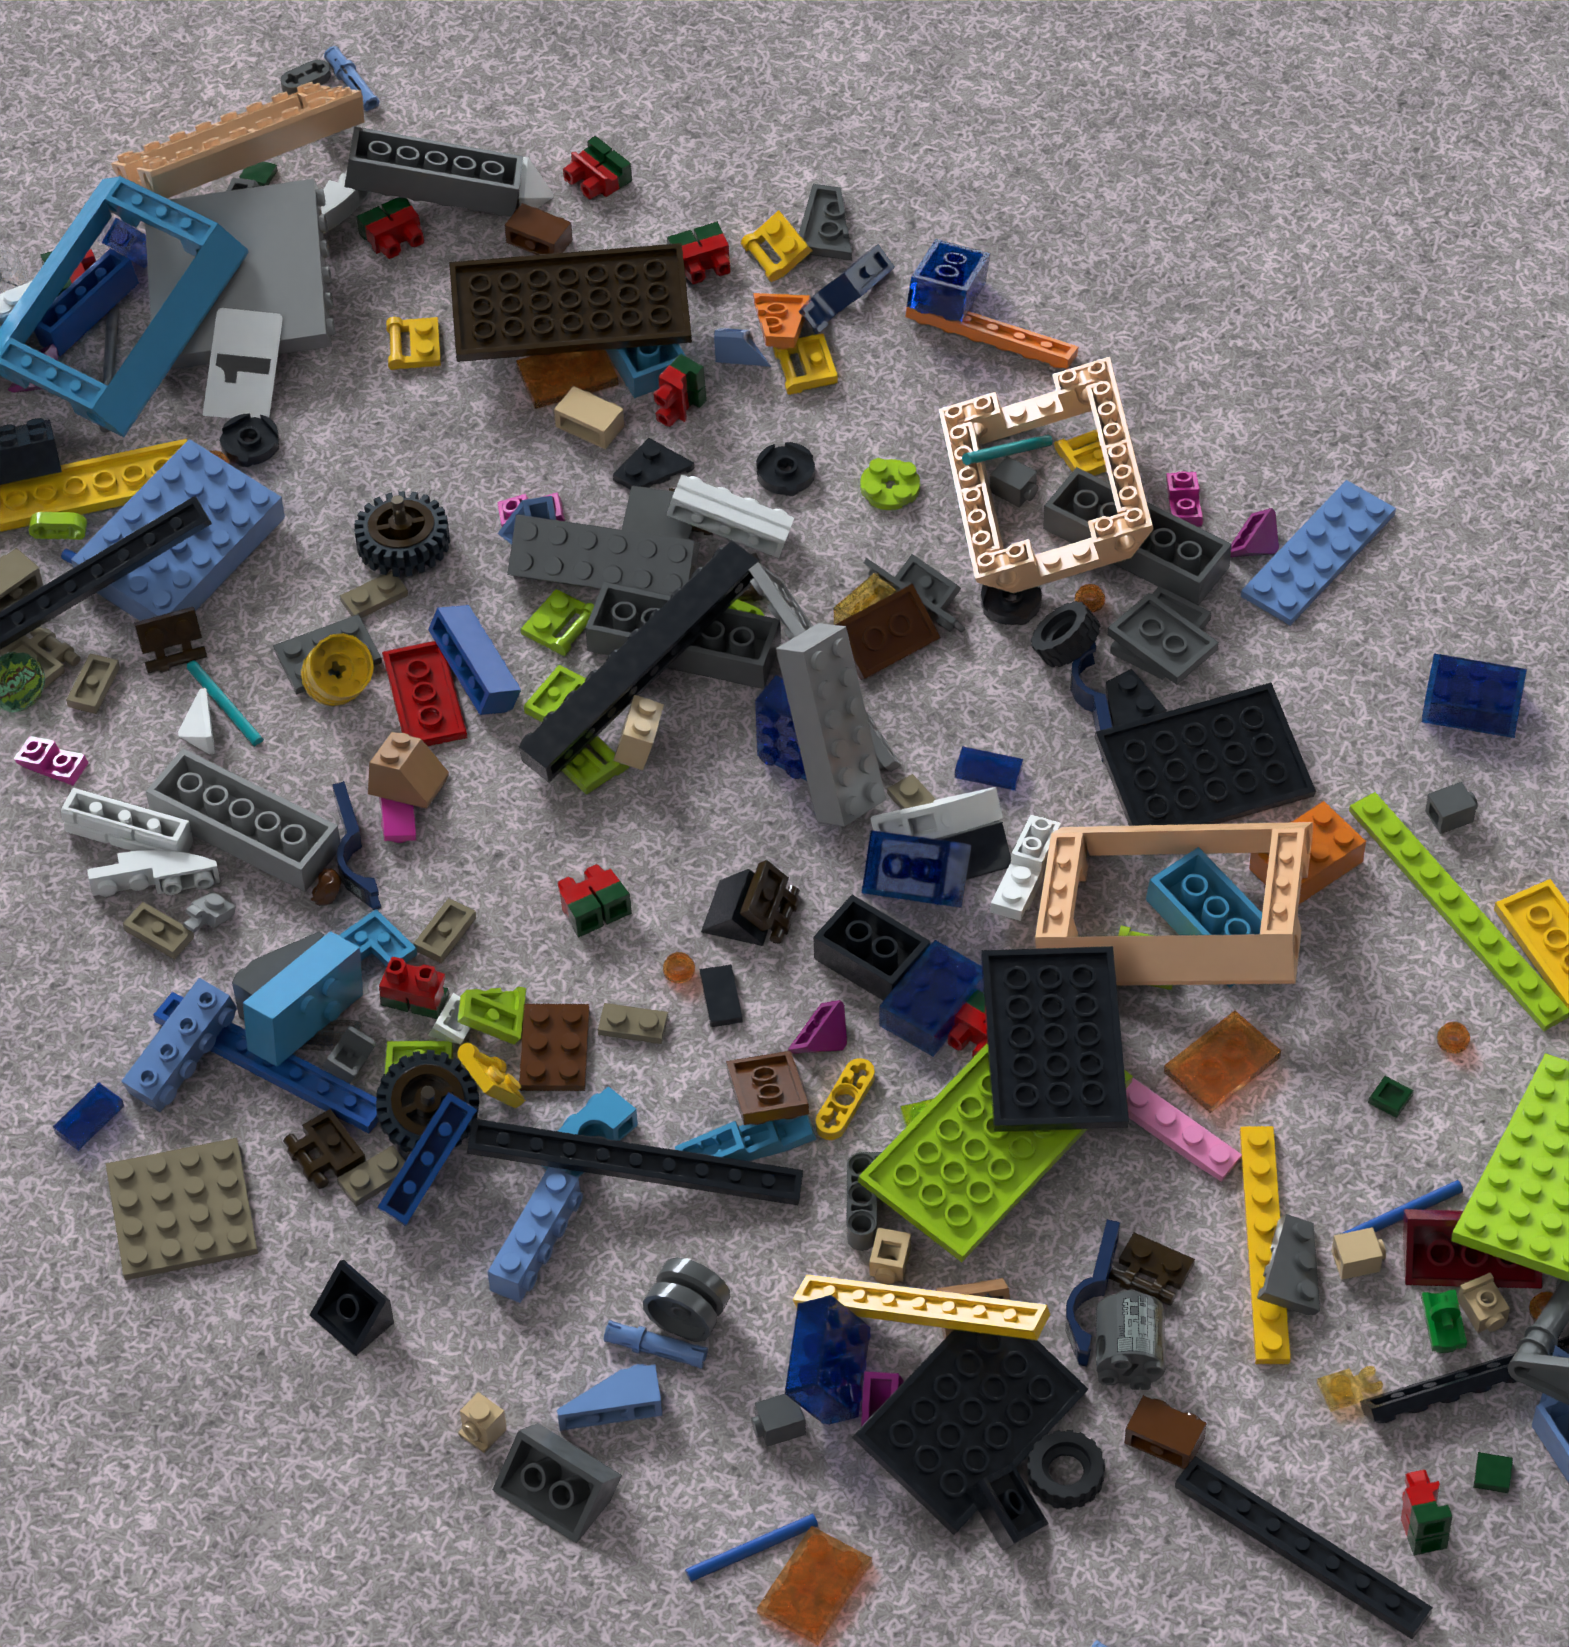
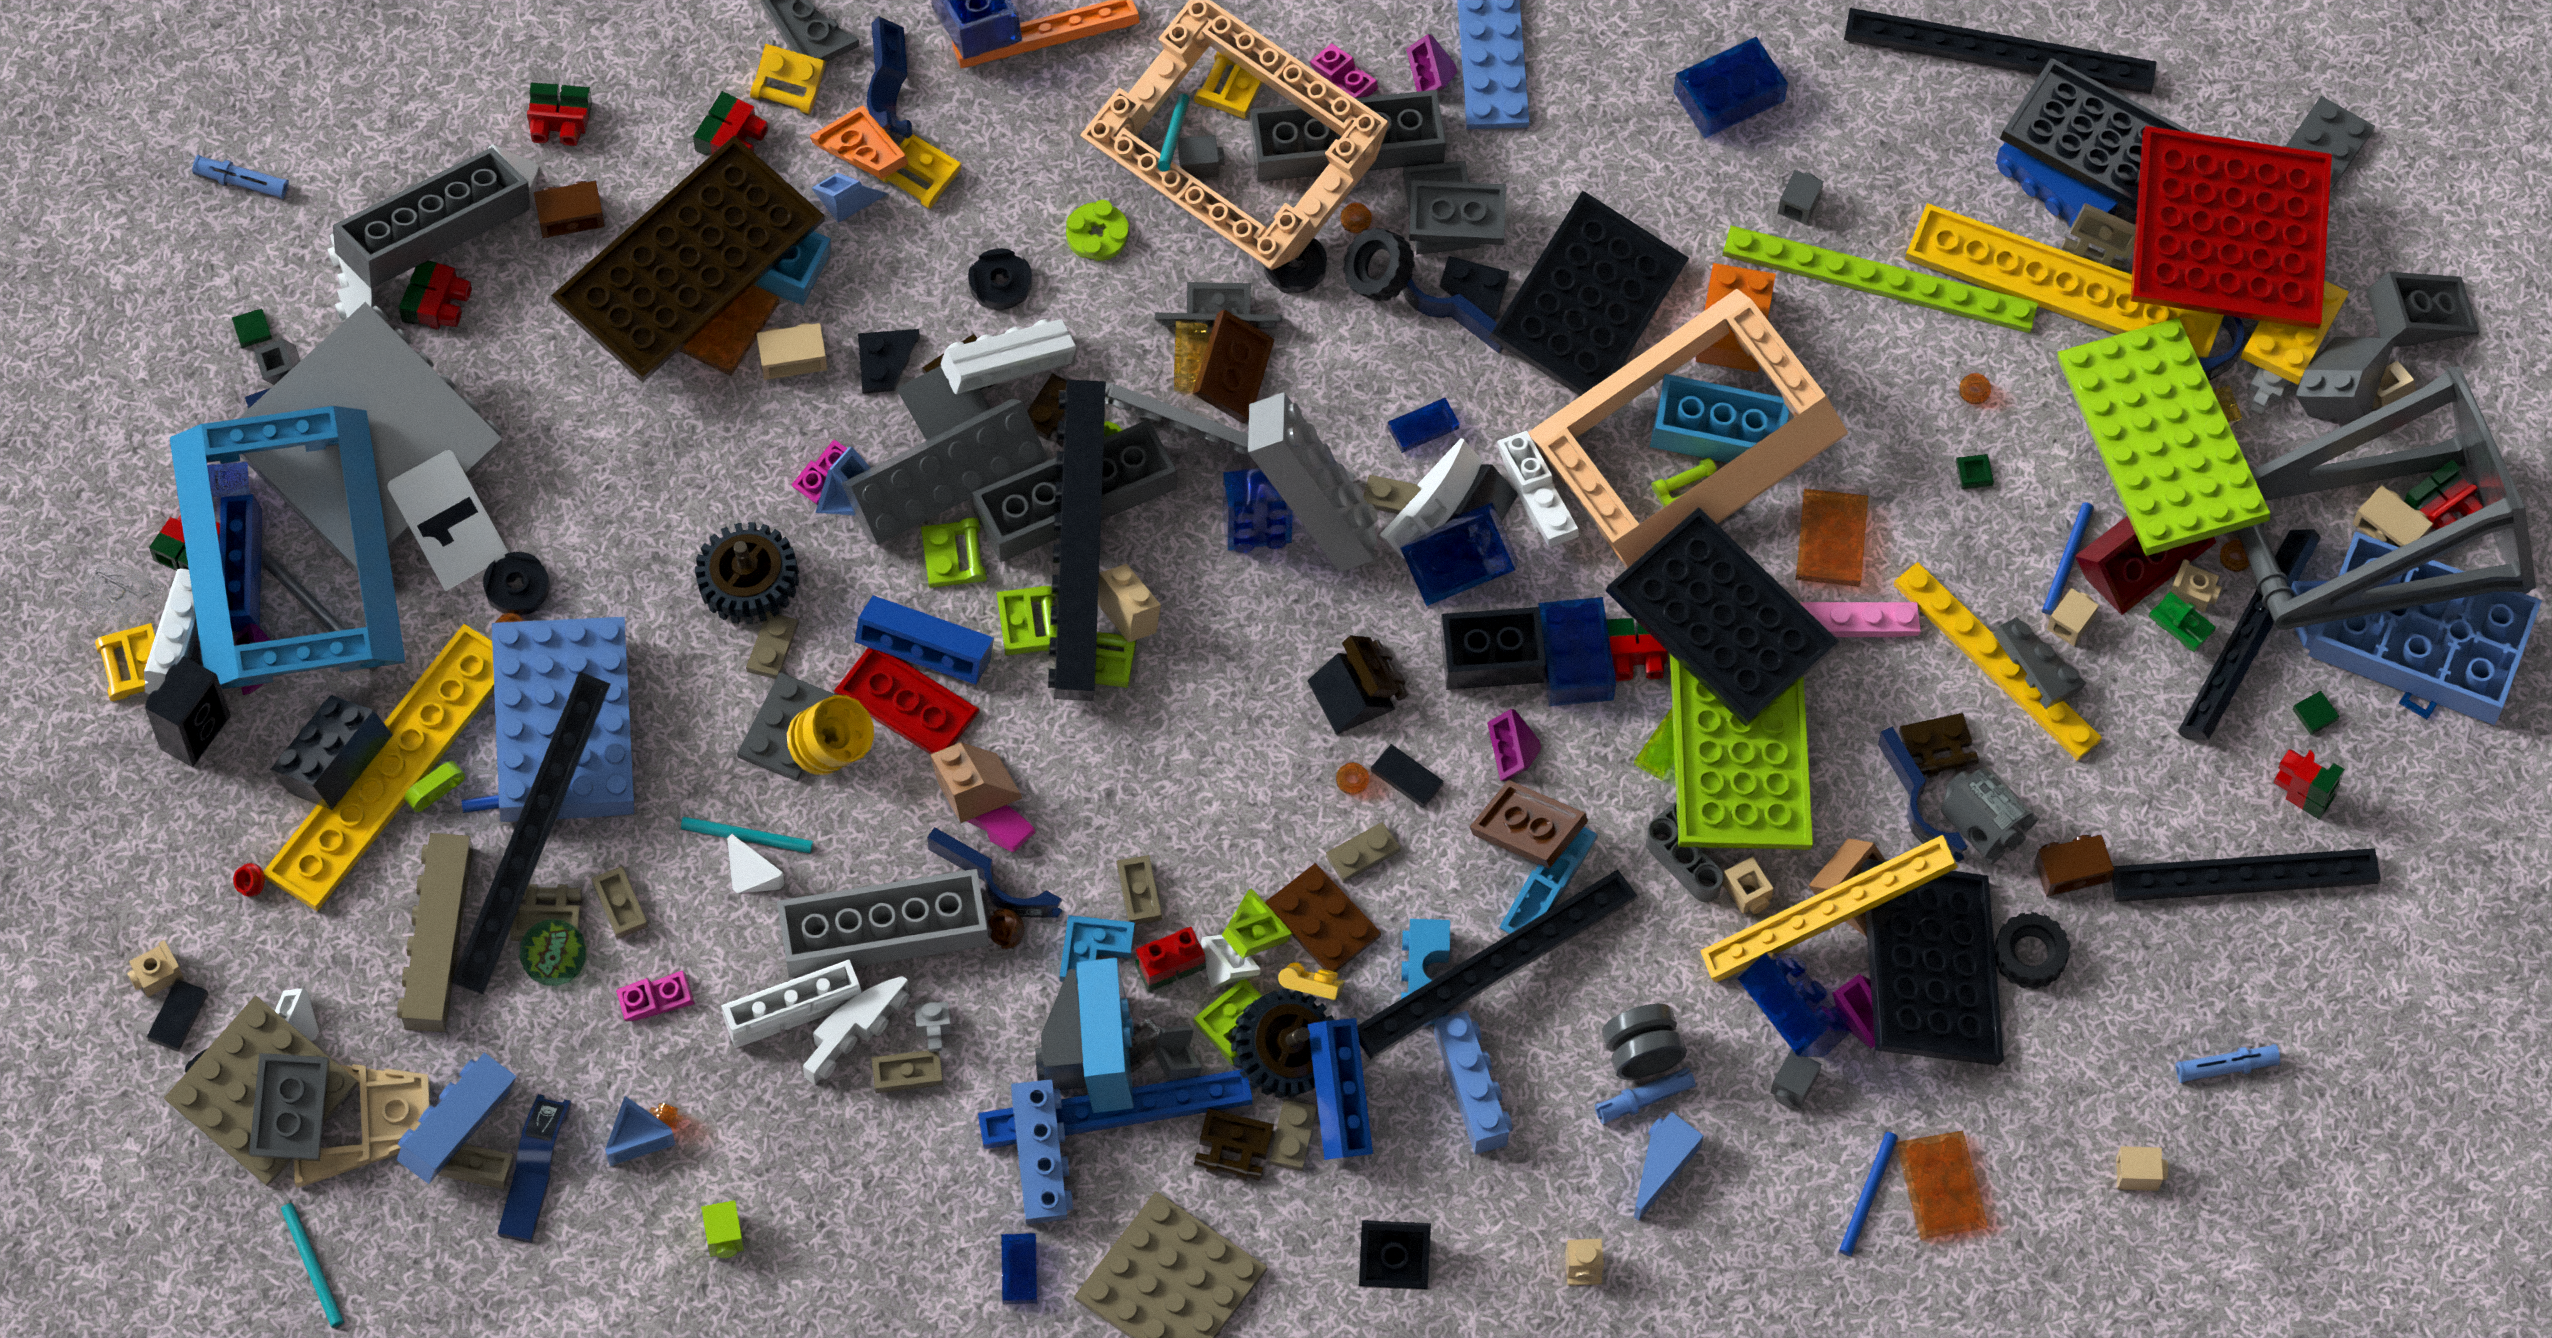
camera: 45 degrees left, 10 degrees up
(168, 631) = (645, 808): dark brown plate -> none
(242, 139) = (227, 229): light nougat slope -> none
(305, 74) = (189, 202): dark grey beam -> none
(423, 342) = (570, 383): yellow plate -> none
(555, 1481) = (1684, 1261): dark grey slope -> none
(594, 900) = (1234, 774): dark green hips -> none
(679, 388) = (850, 272): red hips -> none
(845, 1086) = (1588, 763): yellow beam -> none
(1007, 1506) = (2023, 1015): black slope -> none
(1344, 1389) = (2158, 730): clear yellow plate -> none

